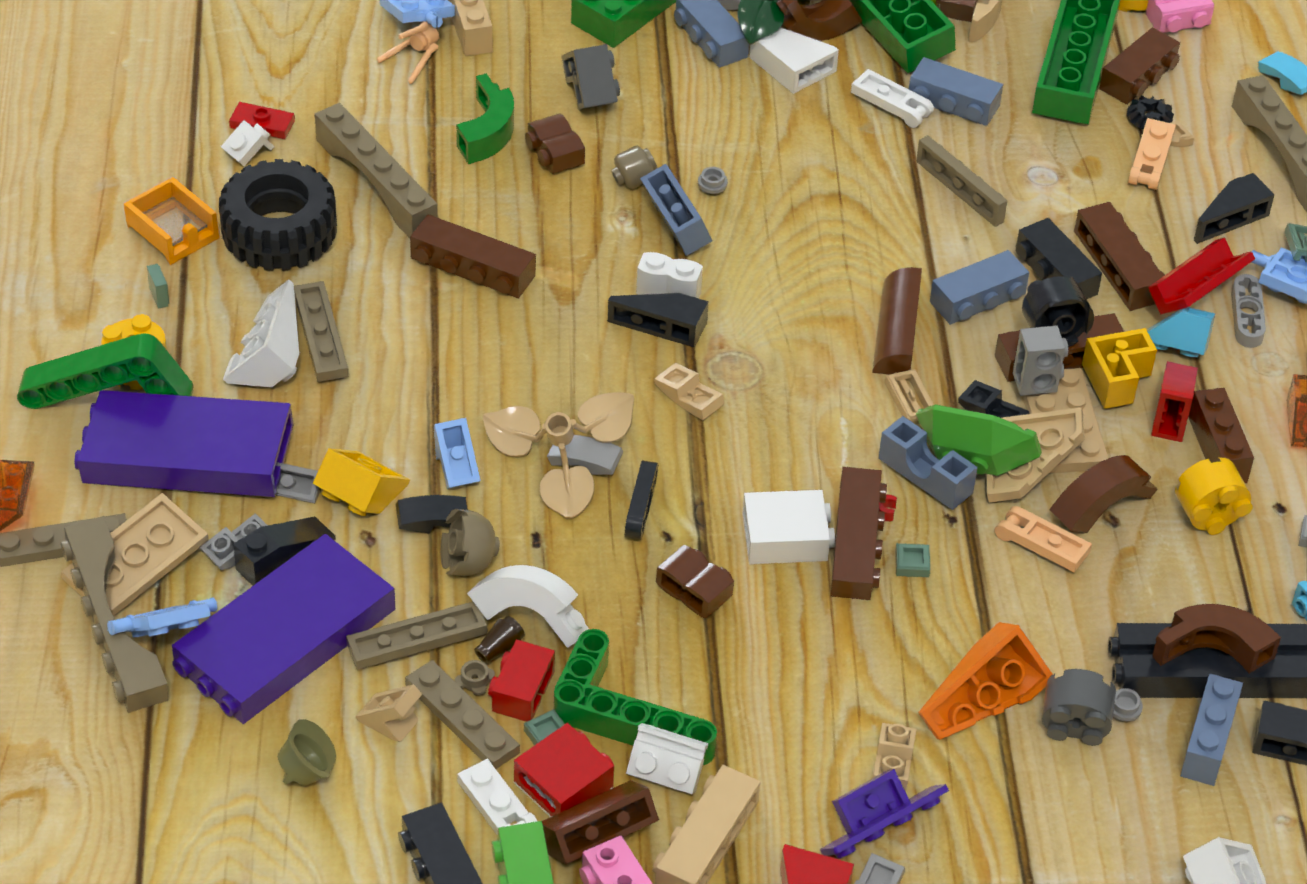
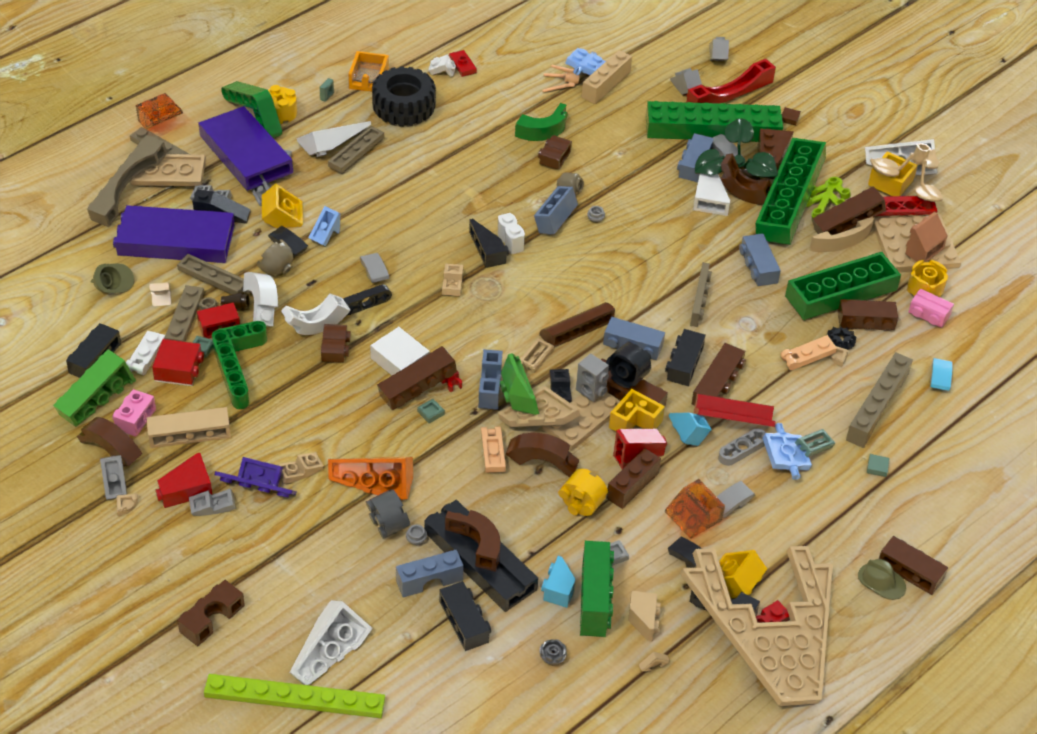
camera: 50 degrees right, 0 degrees up
(163, 620) = (131, 192): light blue plate -> none
(345, 137) = (461, 123): dark tan arch -> none
(473, 256) = (452, 167): reddish brown brick -> none
(568, 489) = (362, 240): tan plant -> none
(592, 76) = (606, 135): dark grey brick -> none
(599, 820) = (159, 386): reddish brown brick -> none
(631, 564) = (312, 322): none -> white arch
(667, 758) = (217, 388): white plate -> none
(892, 97) = (728, 241): white plate -> none
(1238, 204) = (805, 401): black slope -> none

